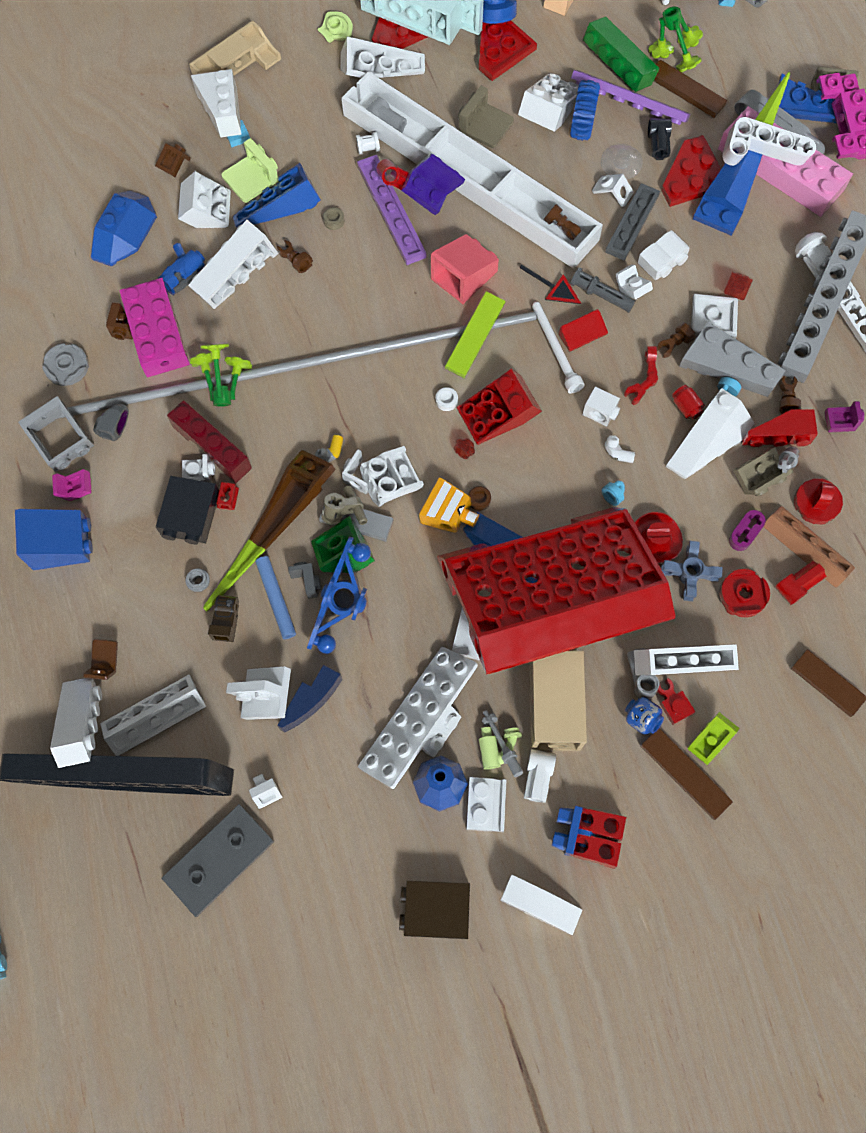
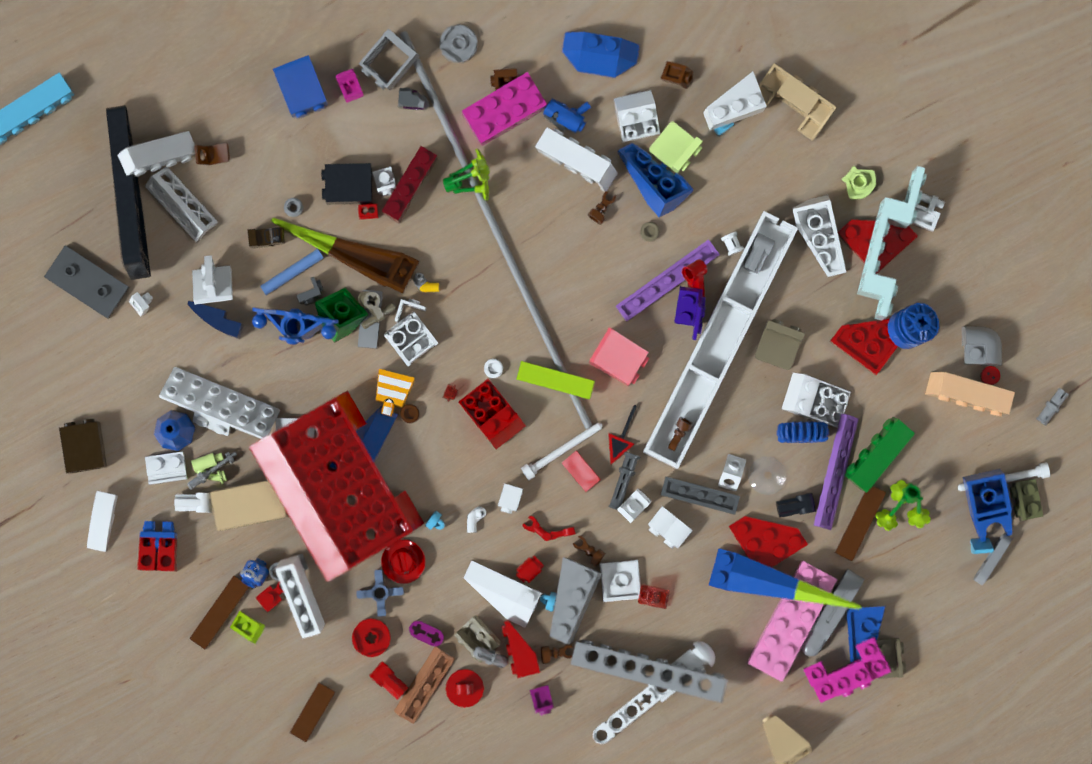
camera: 75 degrees right, 15 degrees up
(796, 147) = (781, 600): white beam -> none

